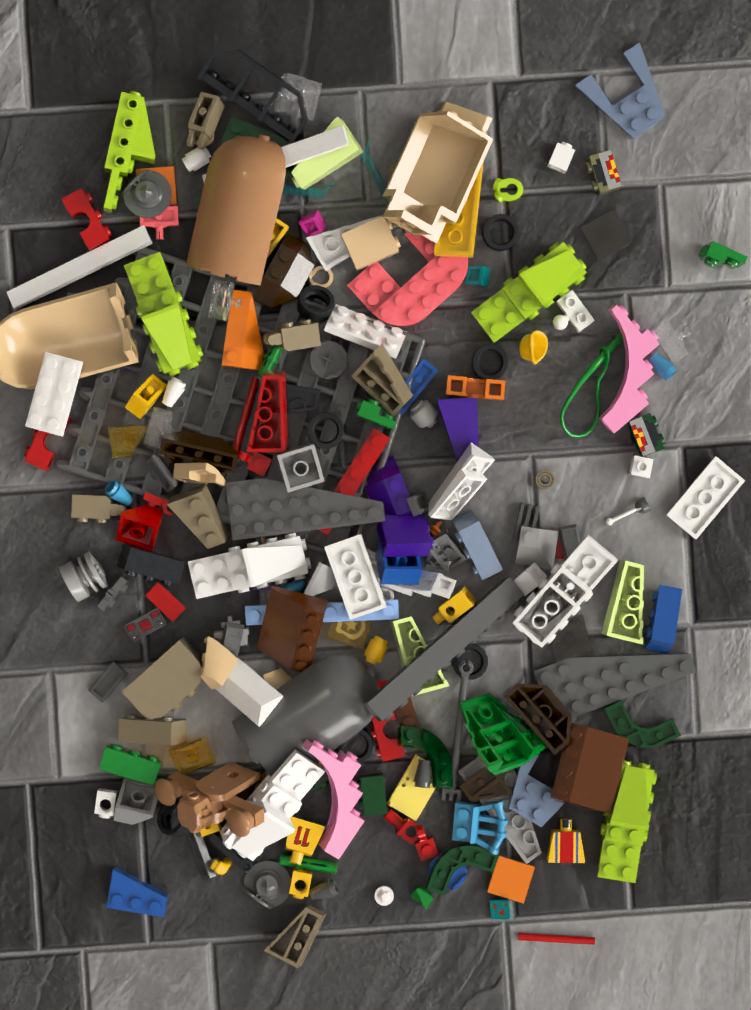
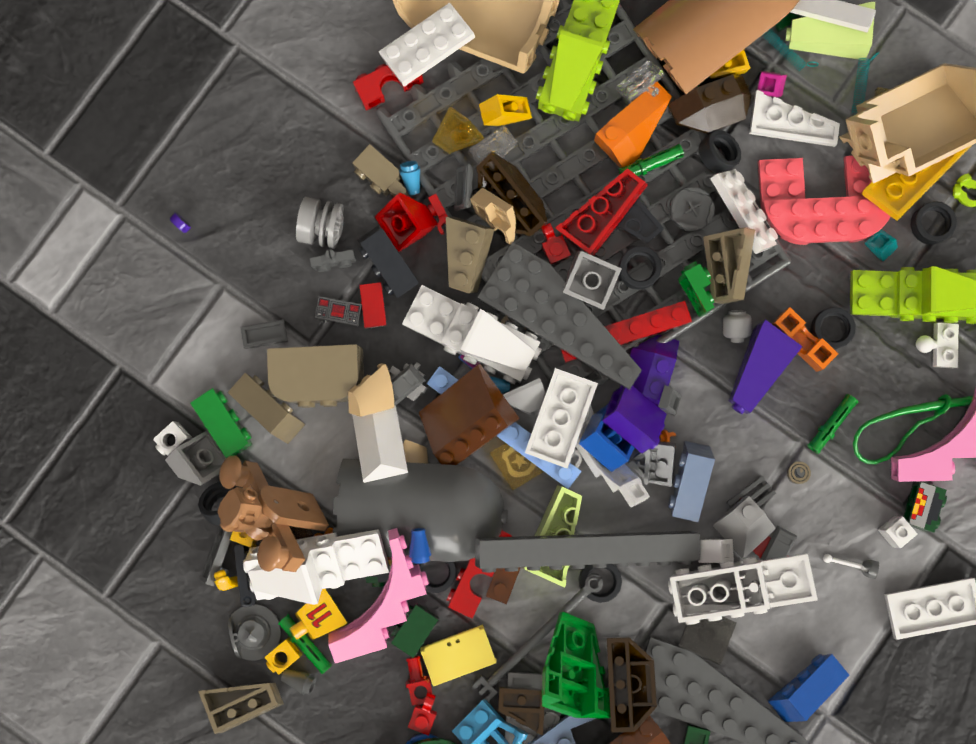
camera: 45 degrees right, 5 degrees down
(135, 896) = (126, 543): blue wedge -> none
(173, 391) = (532, 126): white cone -> none
(192, 755) = (283, 460): clear yellow slope -> none
(245, 414) = (580, 196): red bar -> none
(295, 336) = (680, 161): dark tan hinge -> none
(310, 280) = (744, 126): tan piece -> none
(331, 739) = (419, 546): none -> blue cone
(371, 242) = (813, 137): tan brick -> none
(376, 650) = (524, 500): yellow brick -> none
(384, 895) = (348, 730): white tile -> none
(422, 376) = (764, 291): blue plate -> none
(423, 774) = (474, 649): dark grey cone -> none
(434, 749) = (503, 634): dark green plate -> none
(460, 484) = (722, 413): white slope -> none
(460, 601) = (637, 519): yellow torso -> none
(533, 346) = (884, 345): yellow helmet -> none
(541, 428) = (832, 424): none -> green pin
(626, 604) = (786, 645): yellowish green wedge -> none

